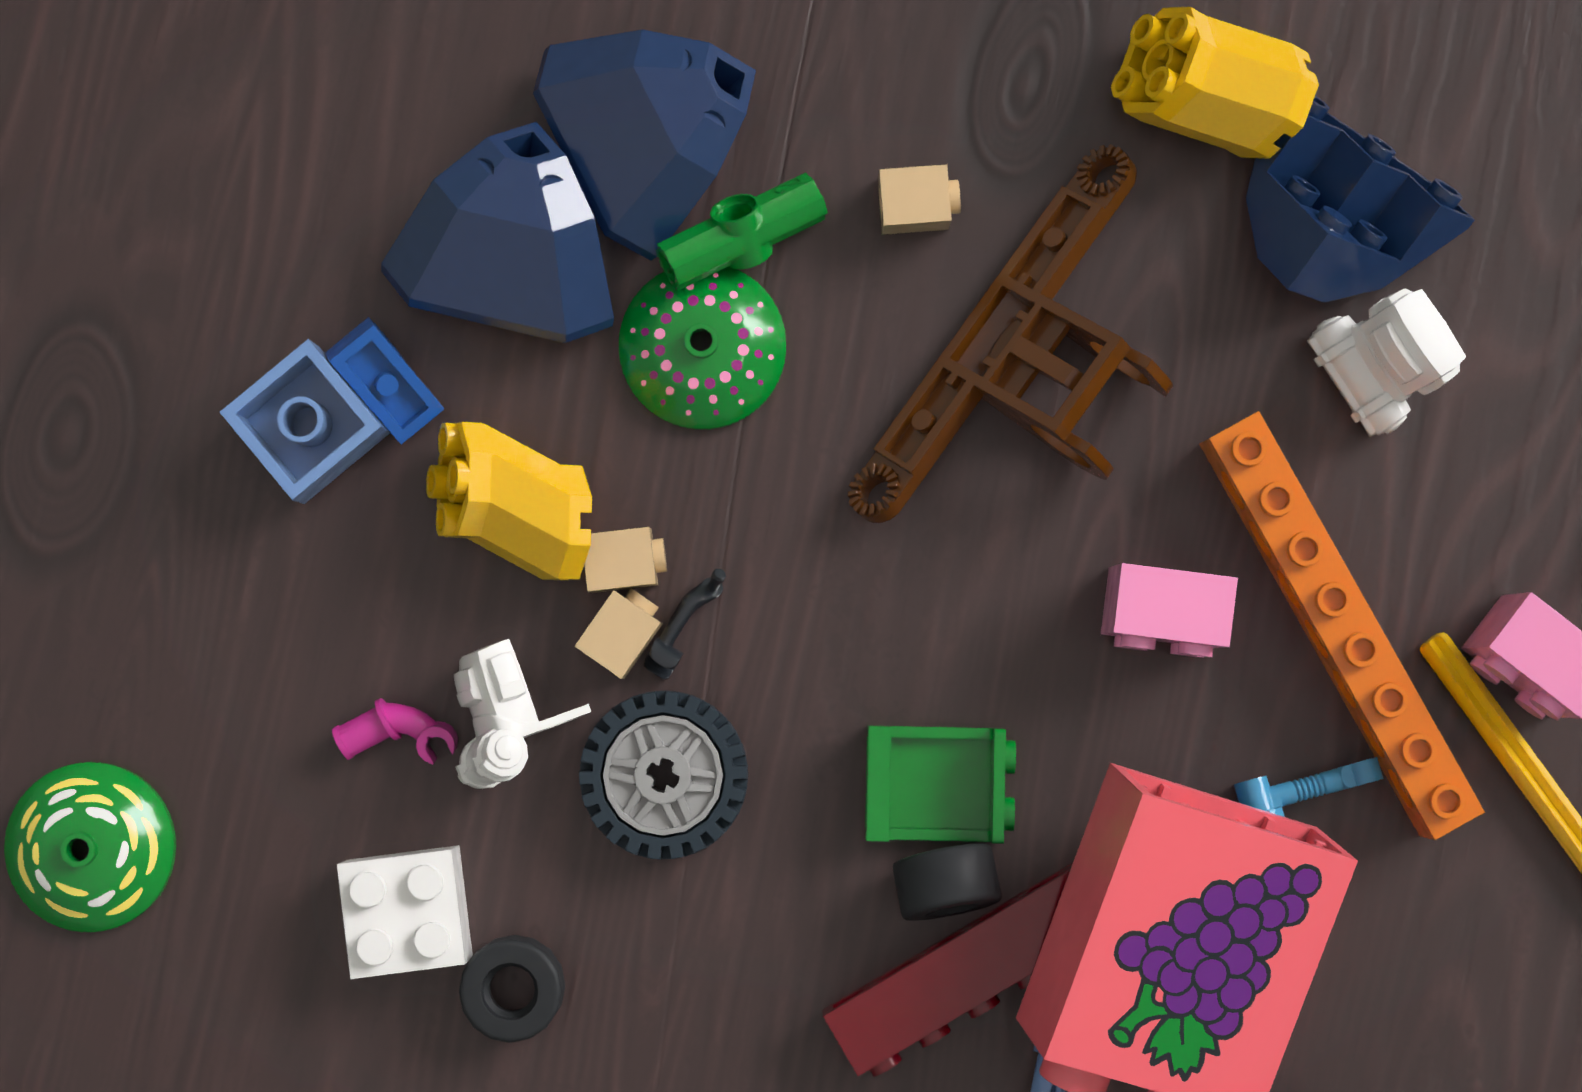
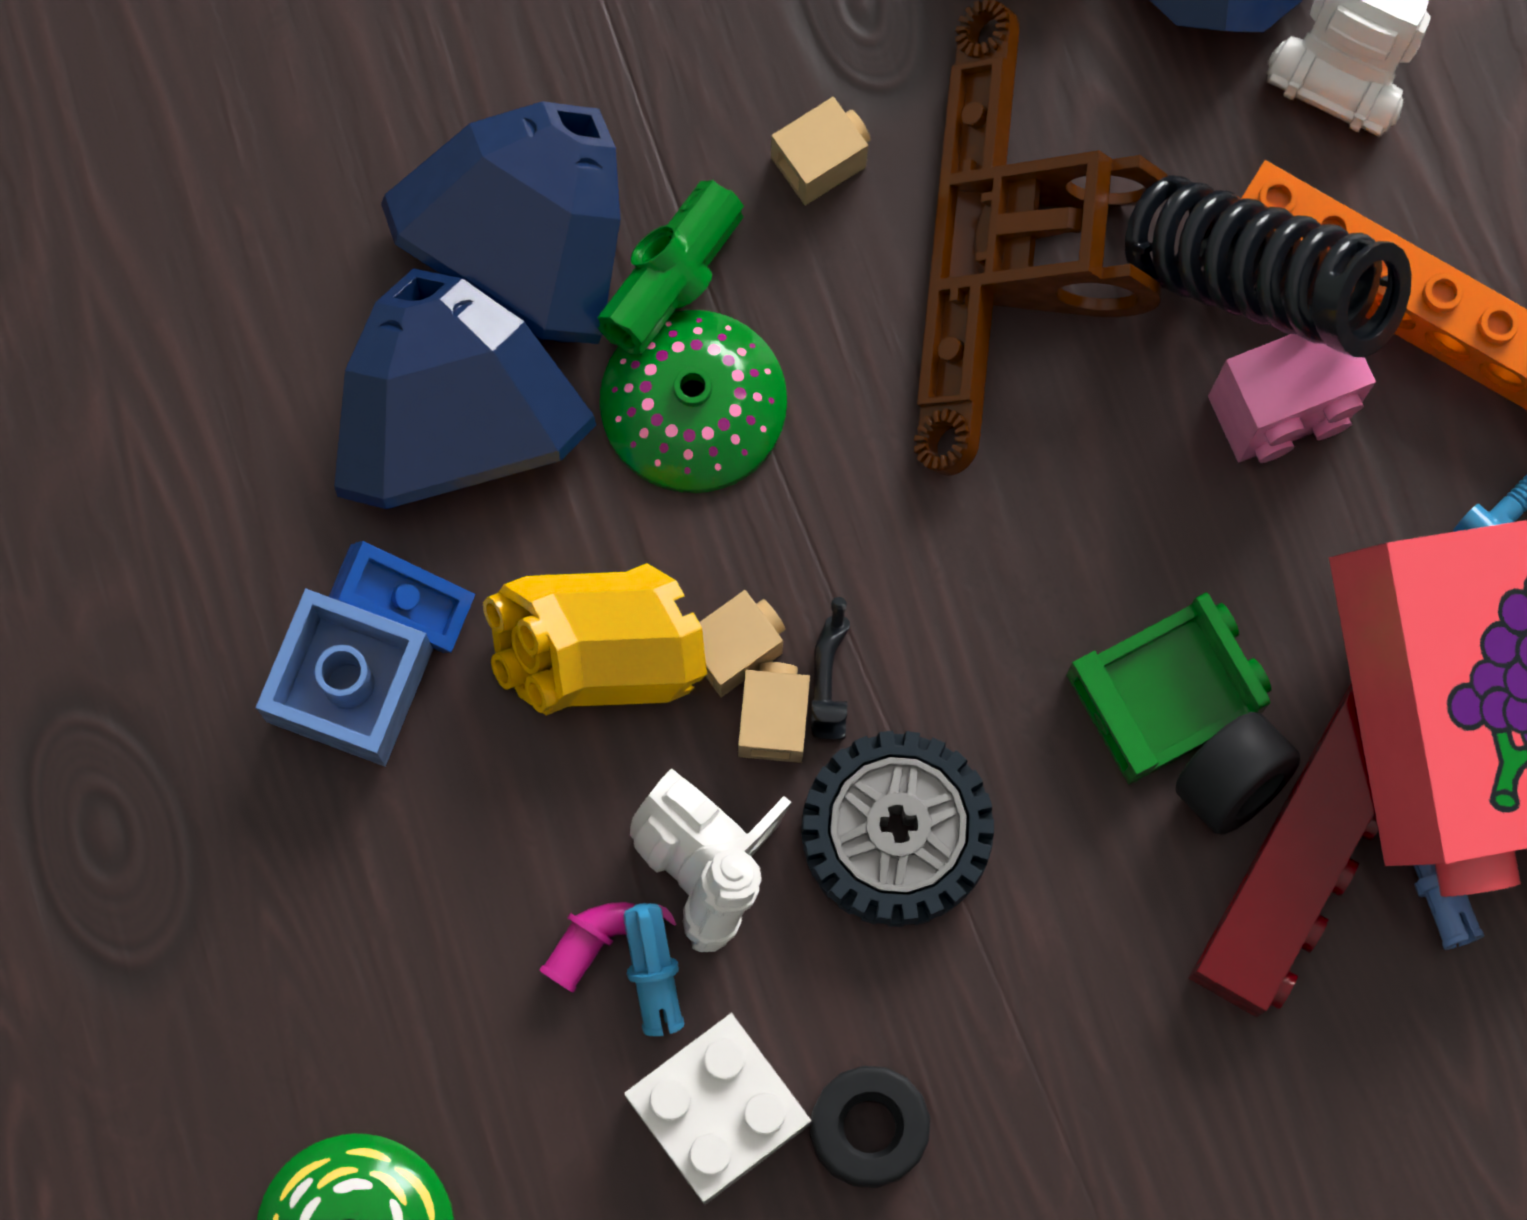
camera: 30 degrees left, 10 degrees down
(415, 778) = (652, 969): none -> dark azure axle
(1181, 467) = (1273, 261): none -> black piece

